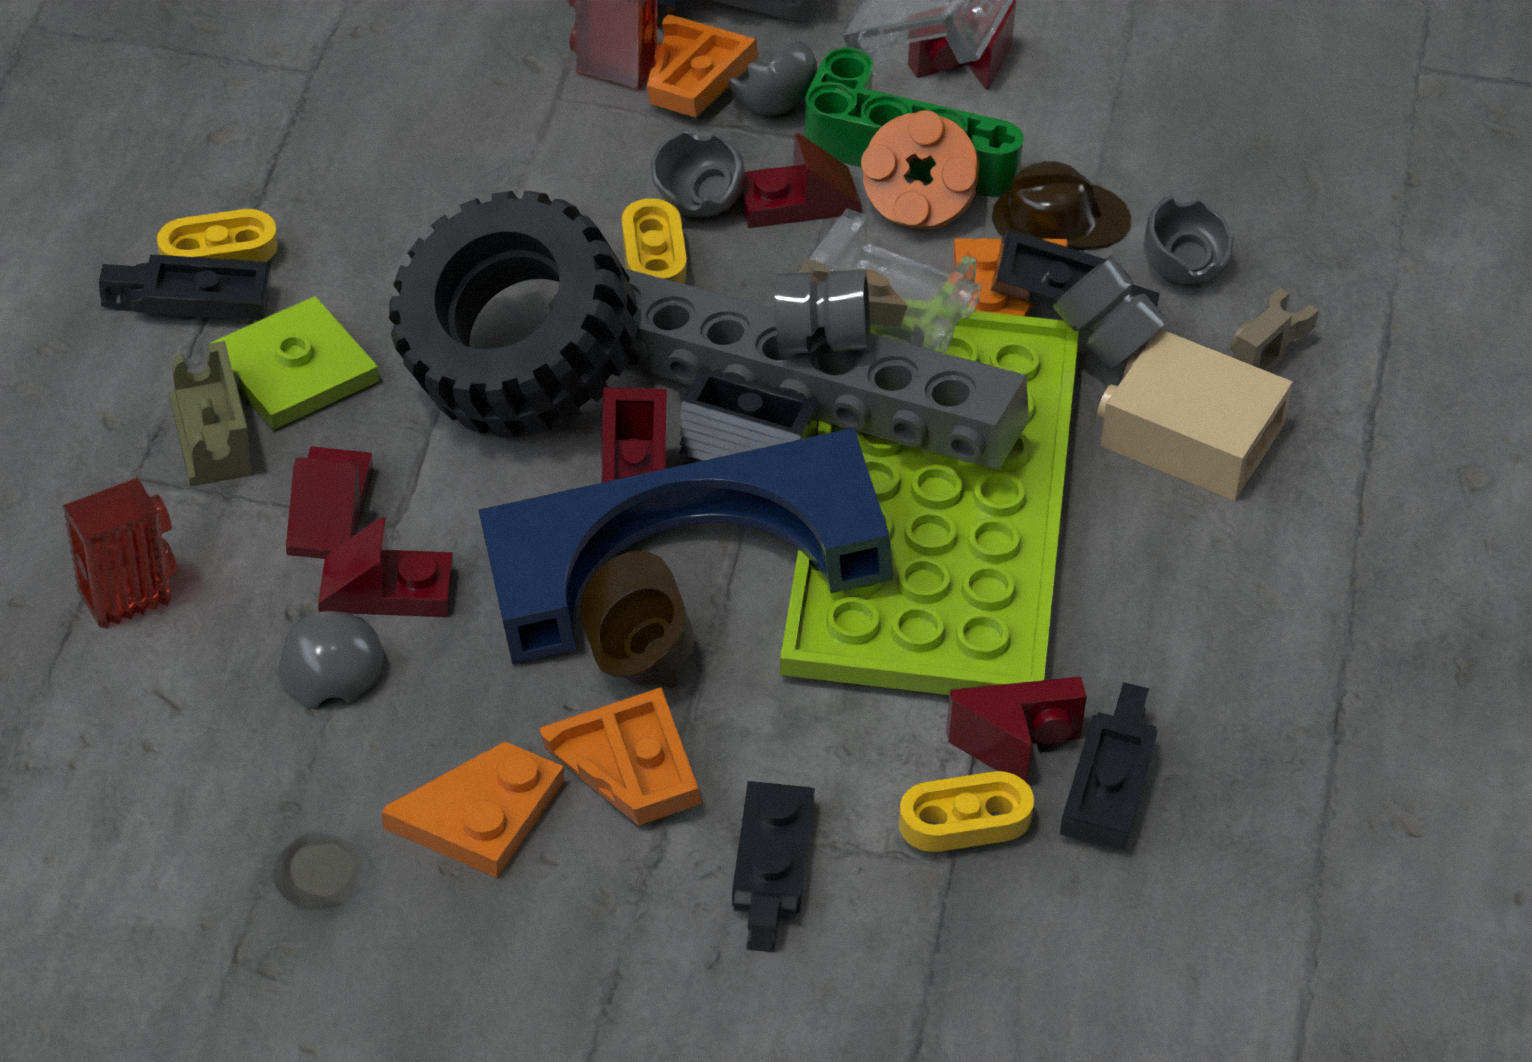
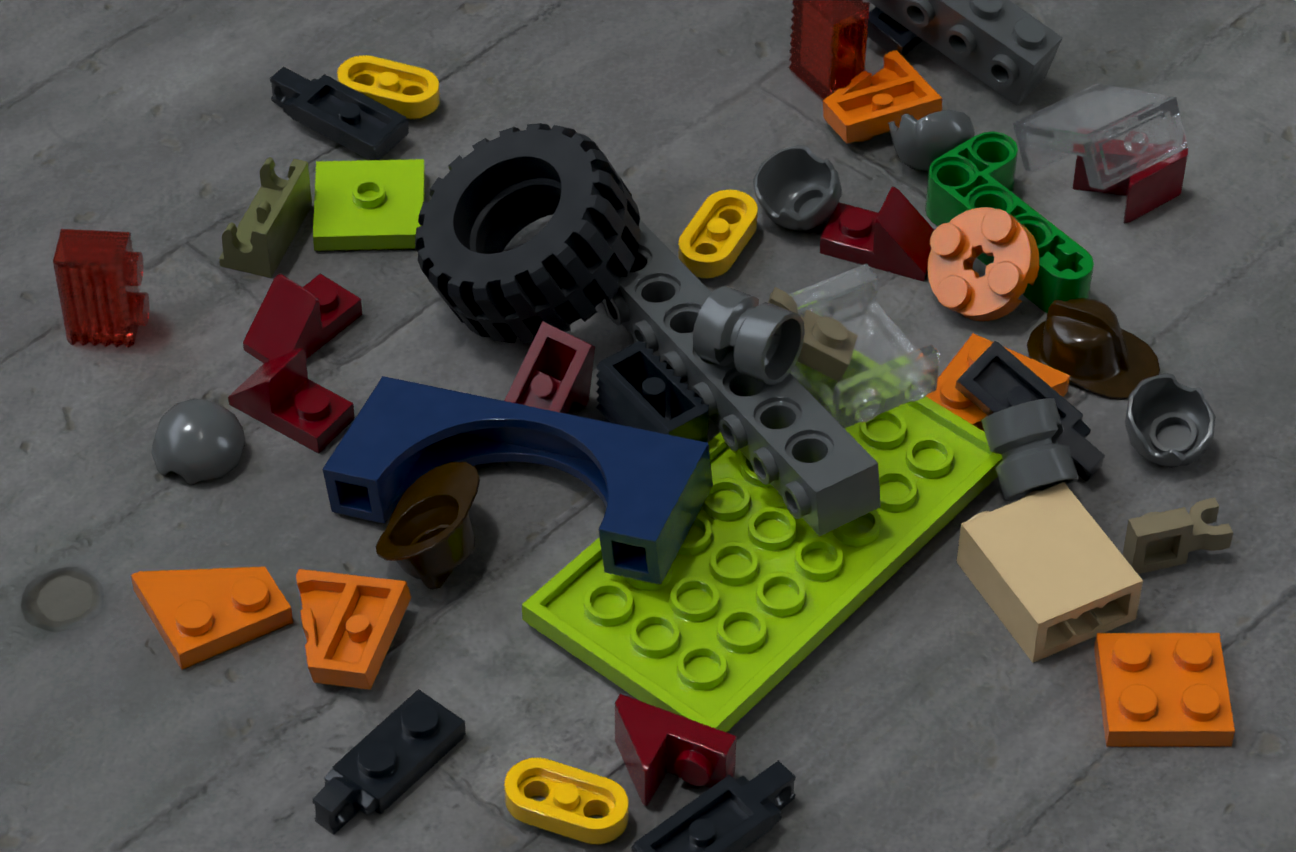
camera: 35 degrees right, 0 degrees up
(1361, 471) = (1163, 690): none -> orange plate

